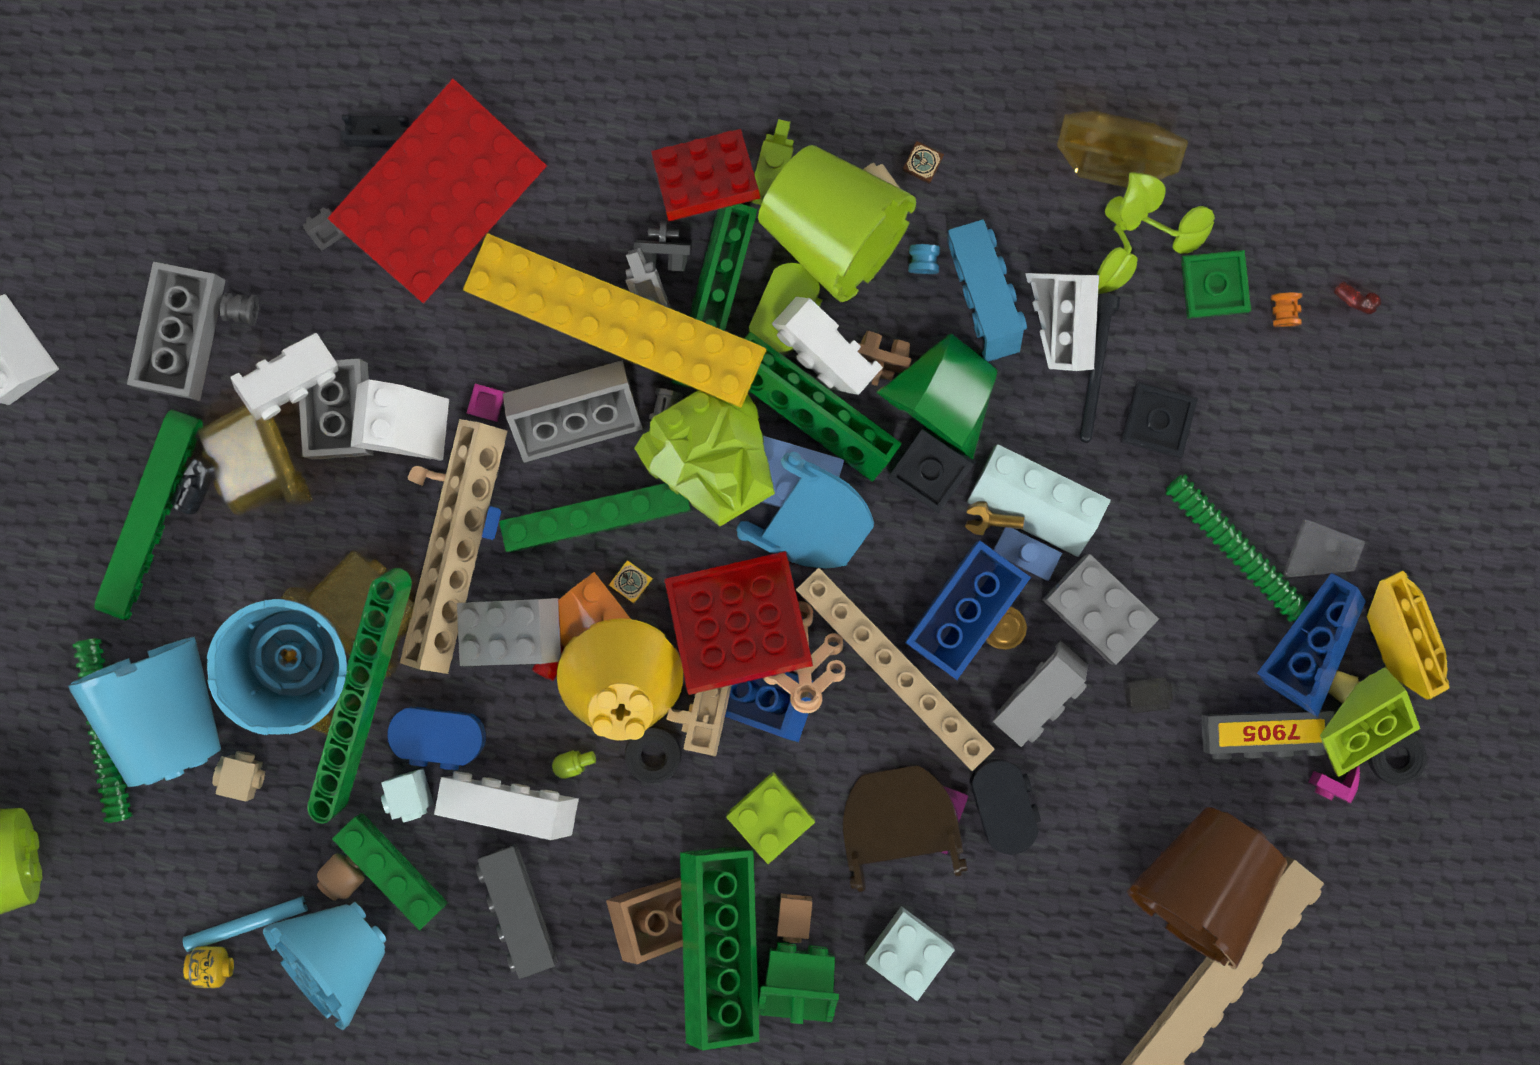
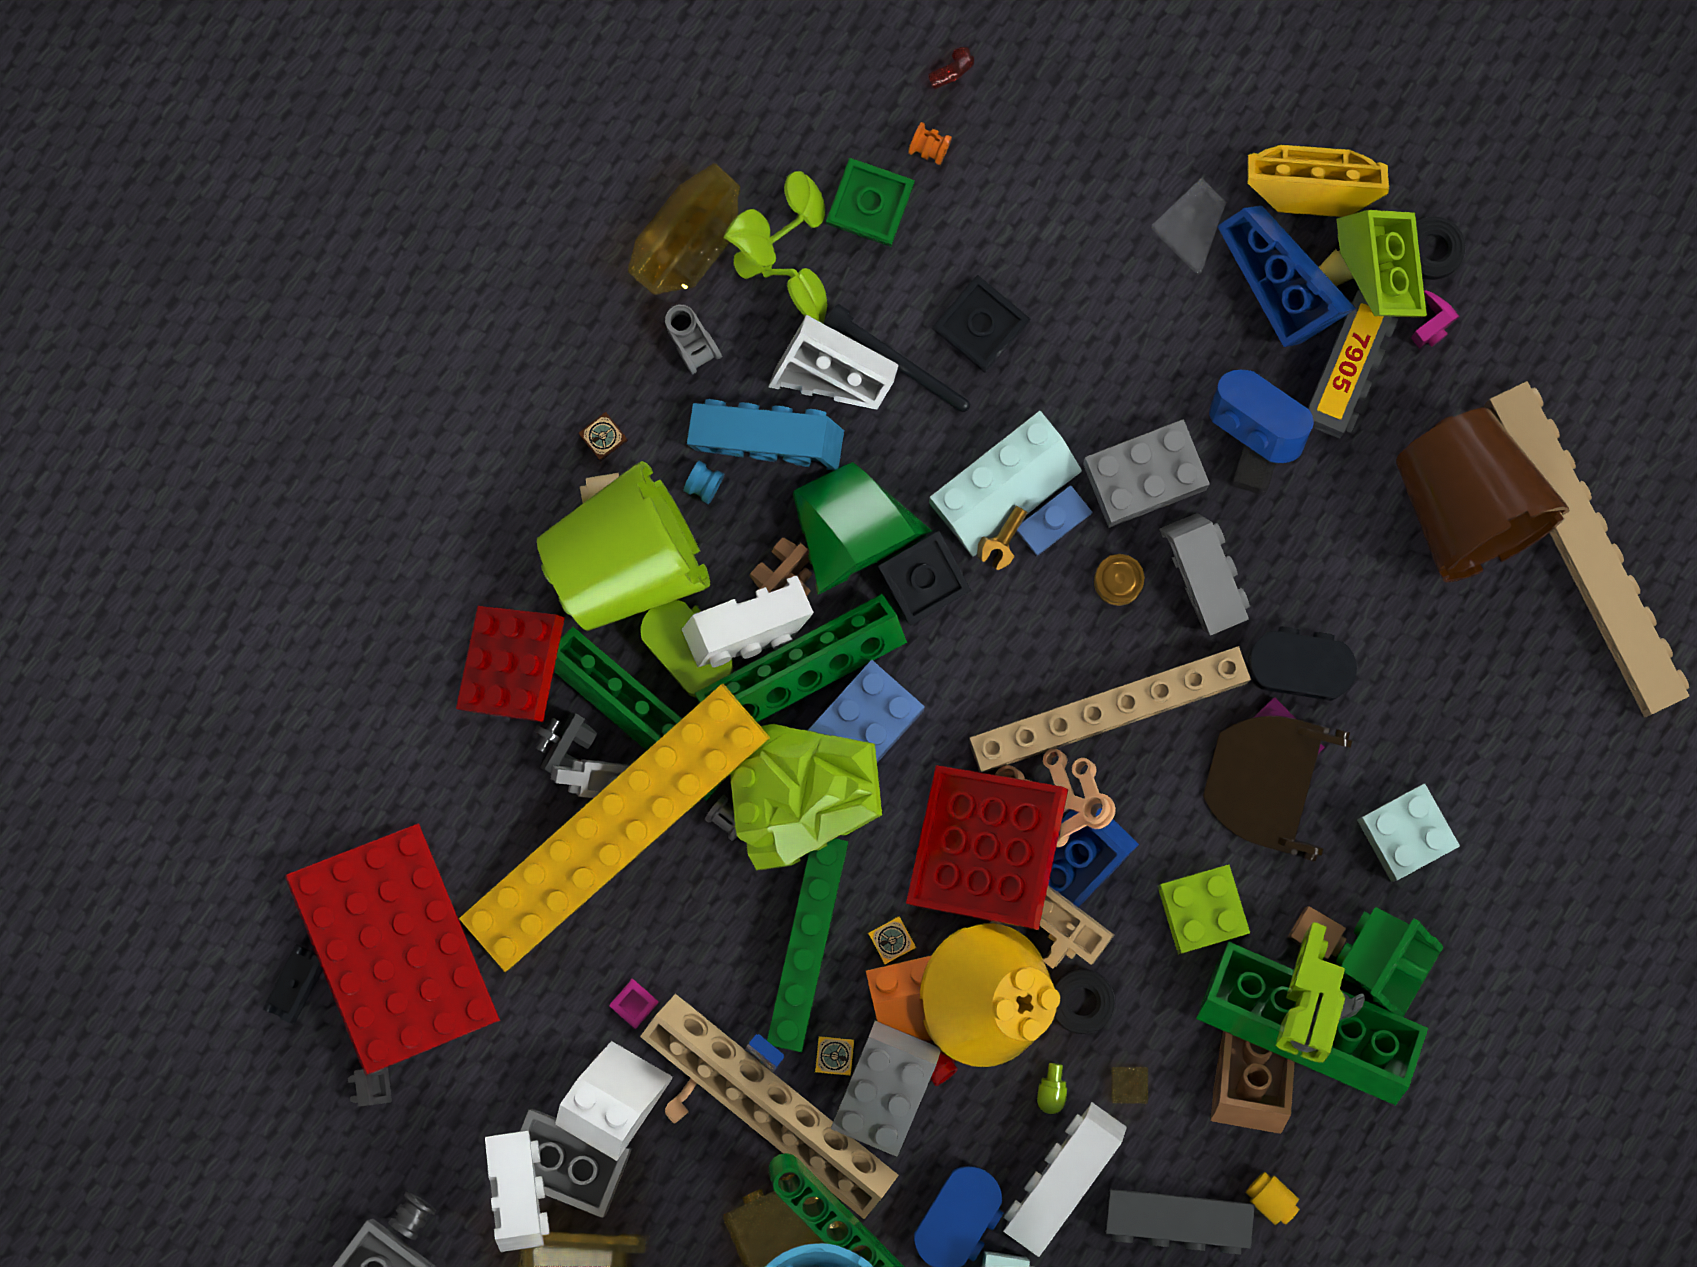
camera: 60 degrees left, 5 degrees down
(519, 579) = (834, 1056): none -> tile
(568, 977) = (1273, 1199): none -> yellow brick
(572, 411) = (687, 916): light grey slope -> none
(605, 822) = (1129, 1085): none -> clear yellow tile
(737, 946) = (1318, 1000): none -> lime plate
(773, 156) = (527, 586): lime hinge -> none
(818, 521) = (923, 717): dark azure piece -> none
(967, 609) = (1083, 608): blue slope -> none
(1032, 196) = (694, 343): none -> light grey piece
(1191, 680) = (1261, 416): none -> blue brick
(1237, 547) = (1147, 307): green piece -> none

